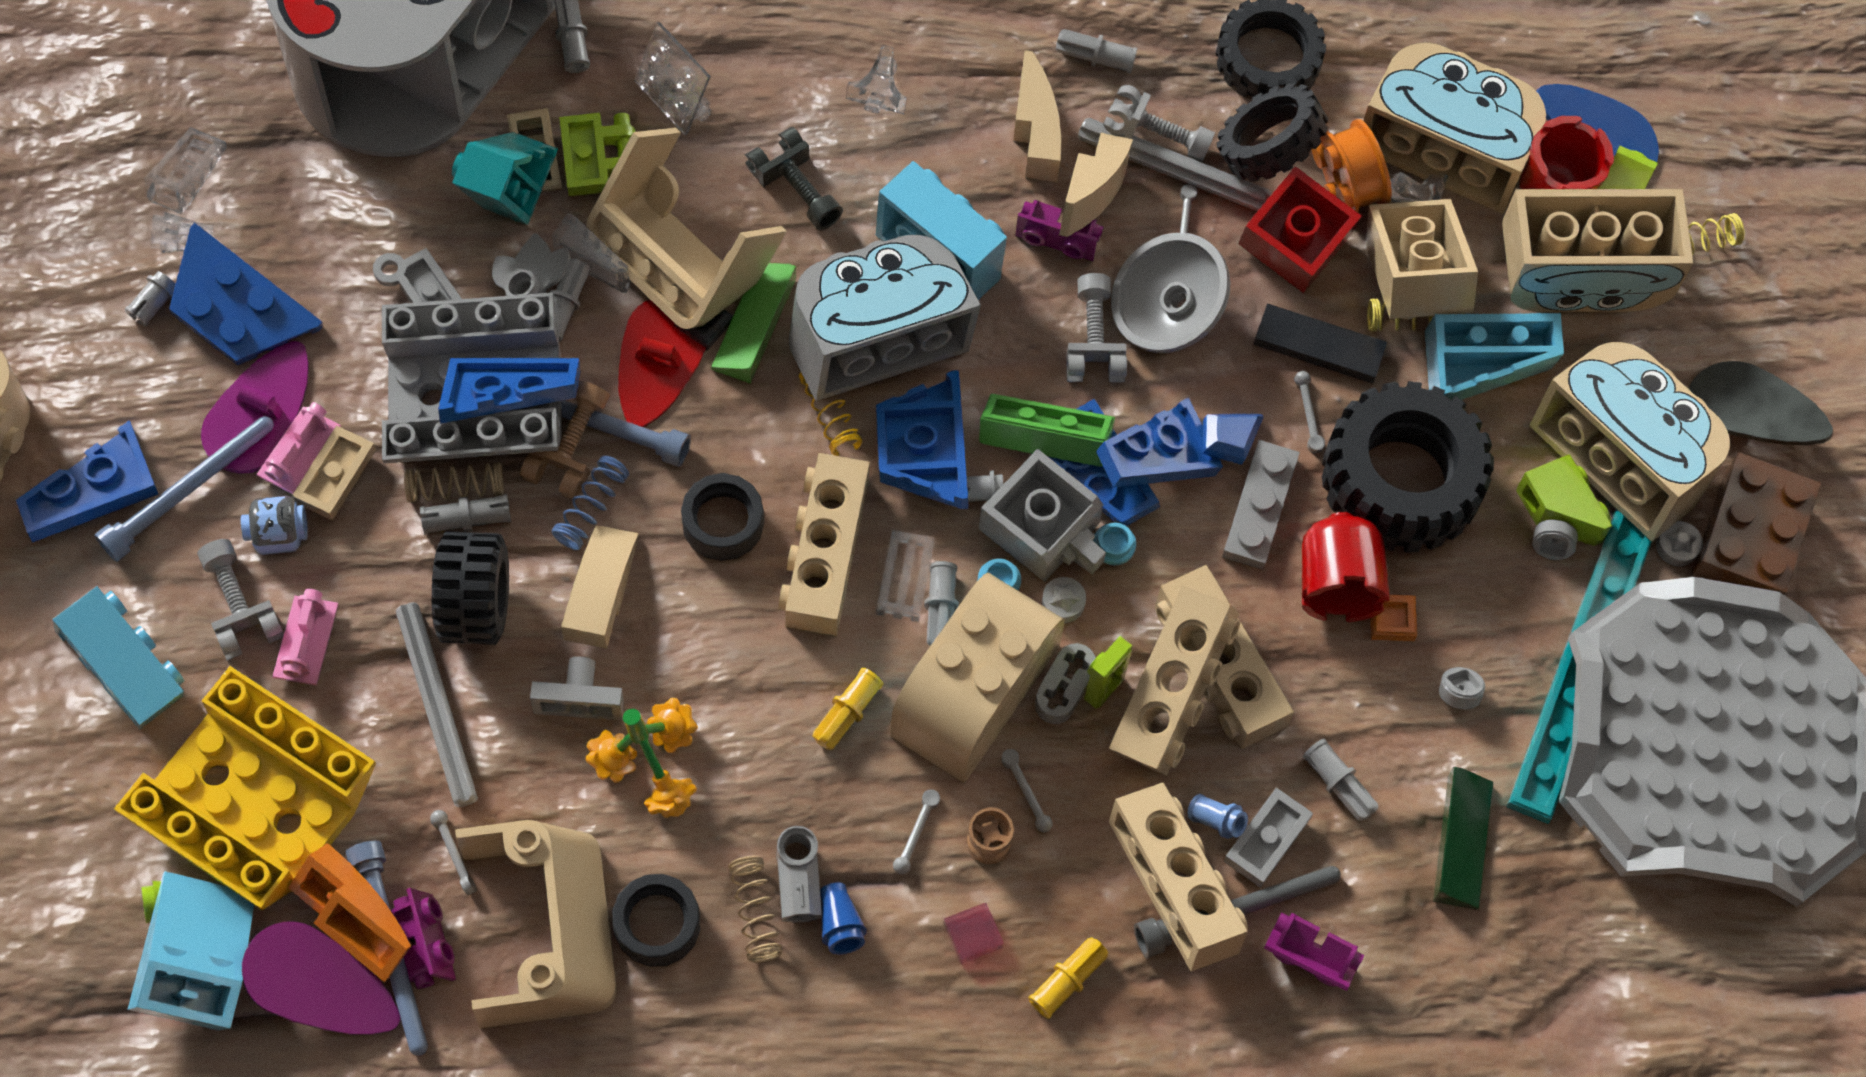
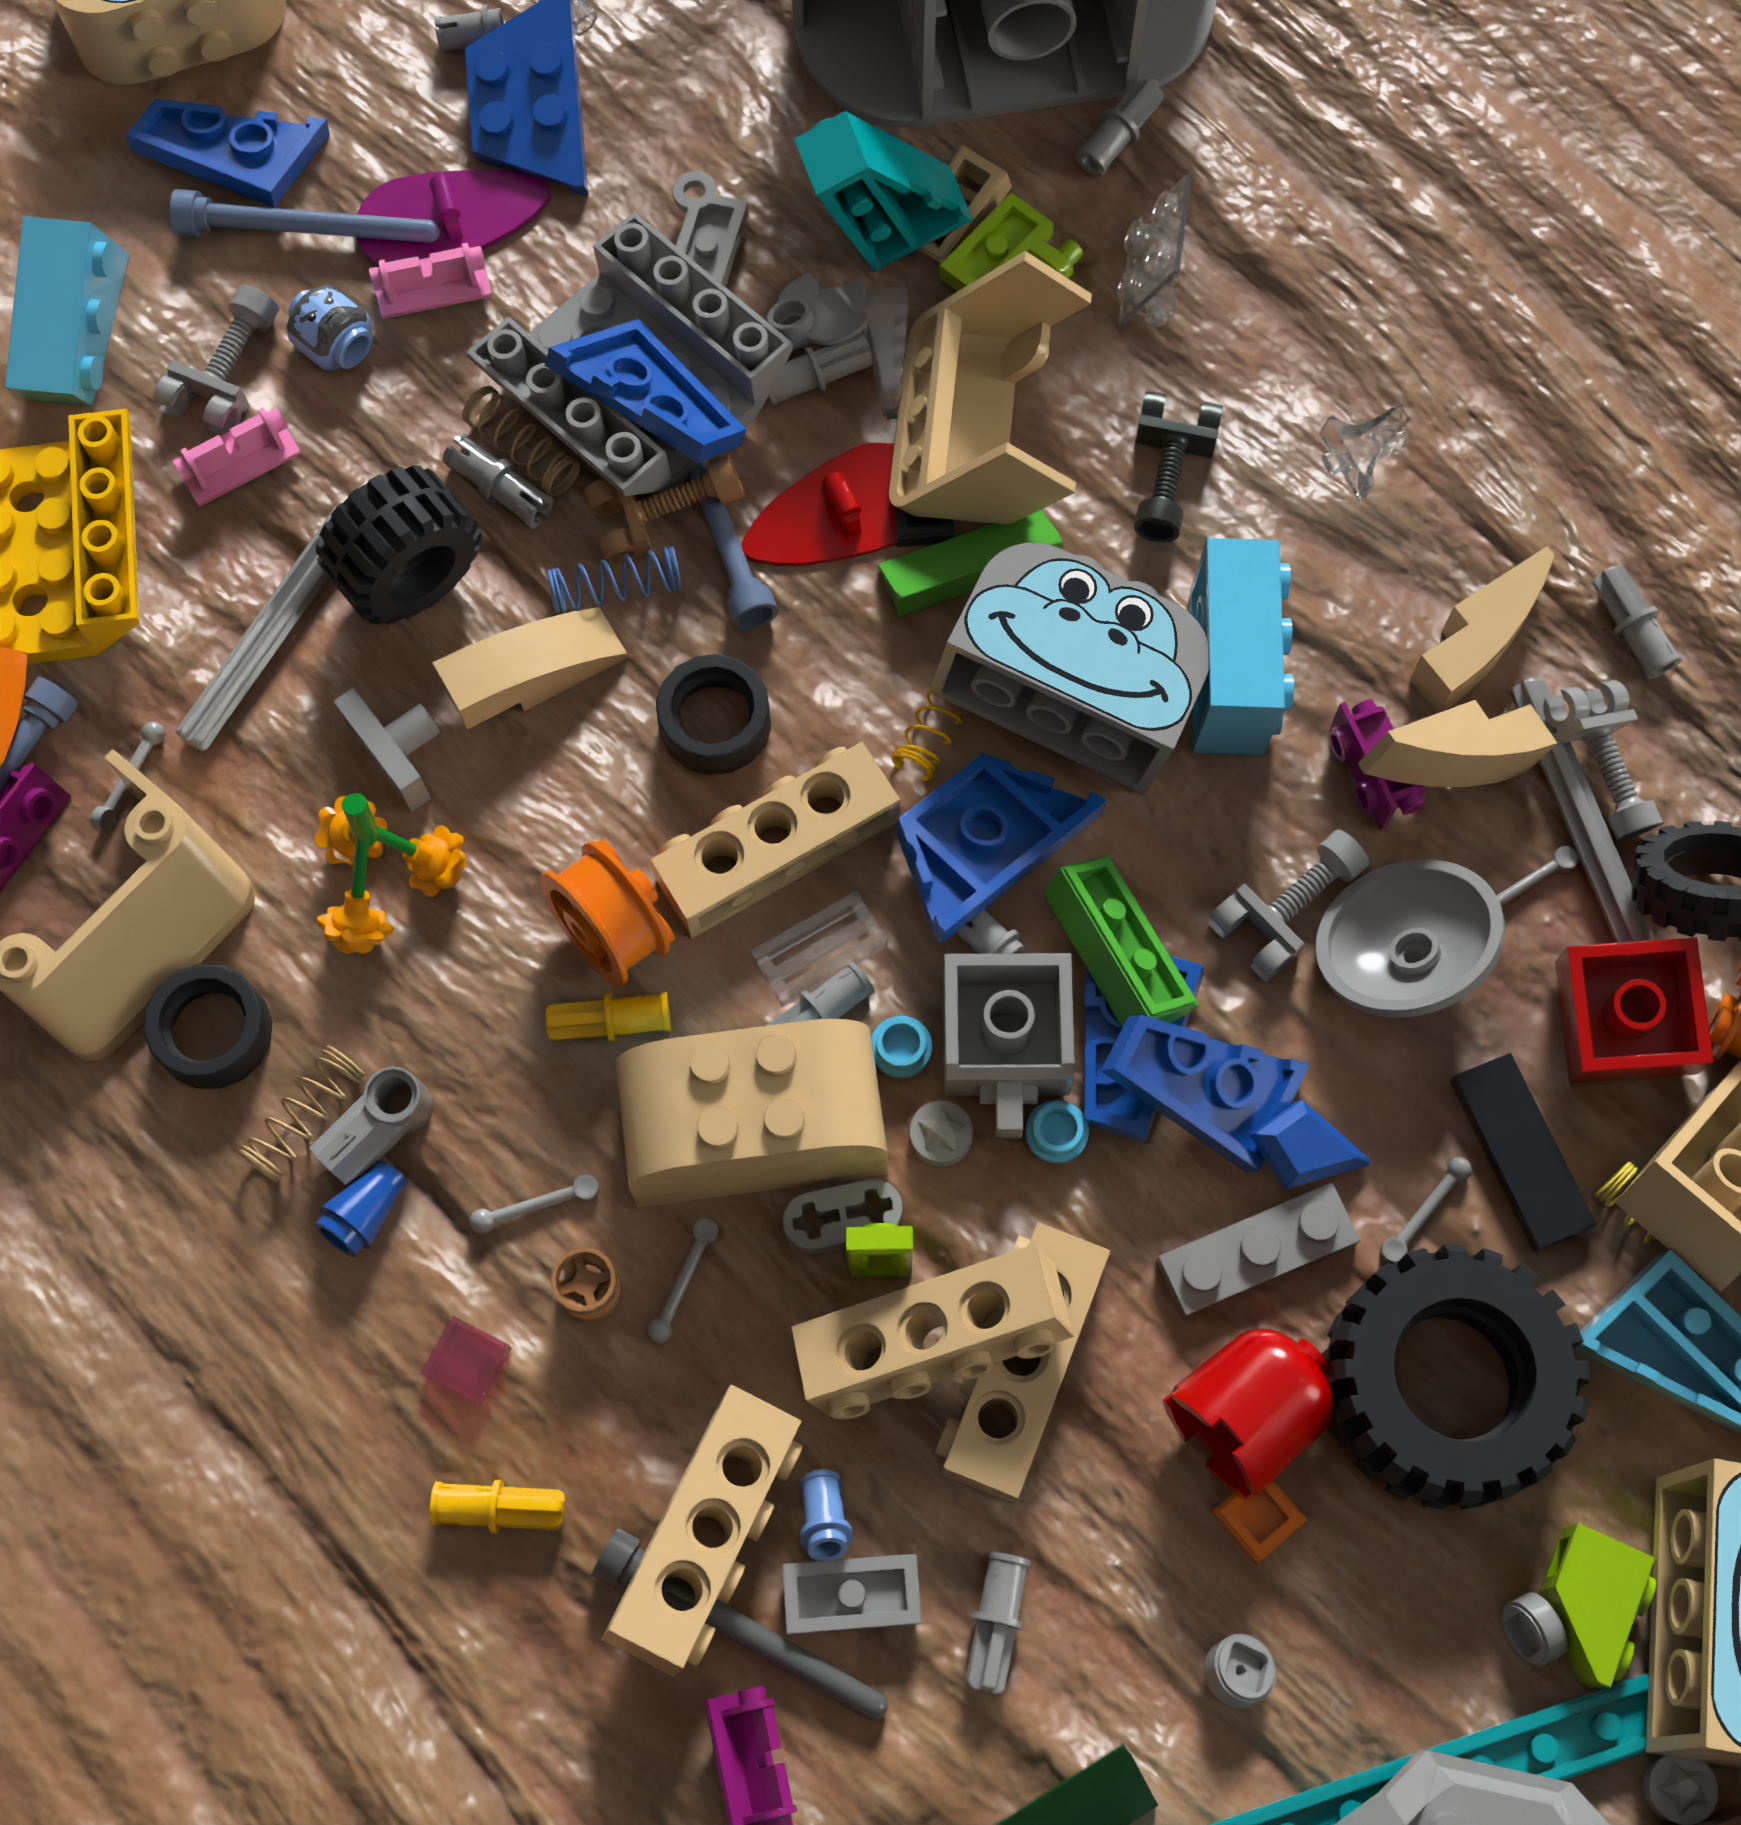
camera: 55 degrees right, 5 degrees up
(334, 472) = (430, 330): tan plate -> none
(795, 656) = (607, 911): none -> orange wheel

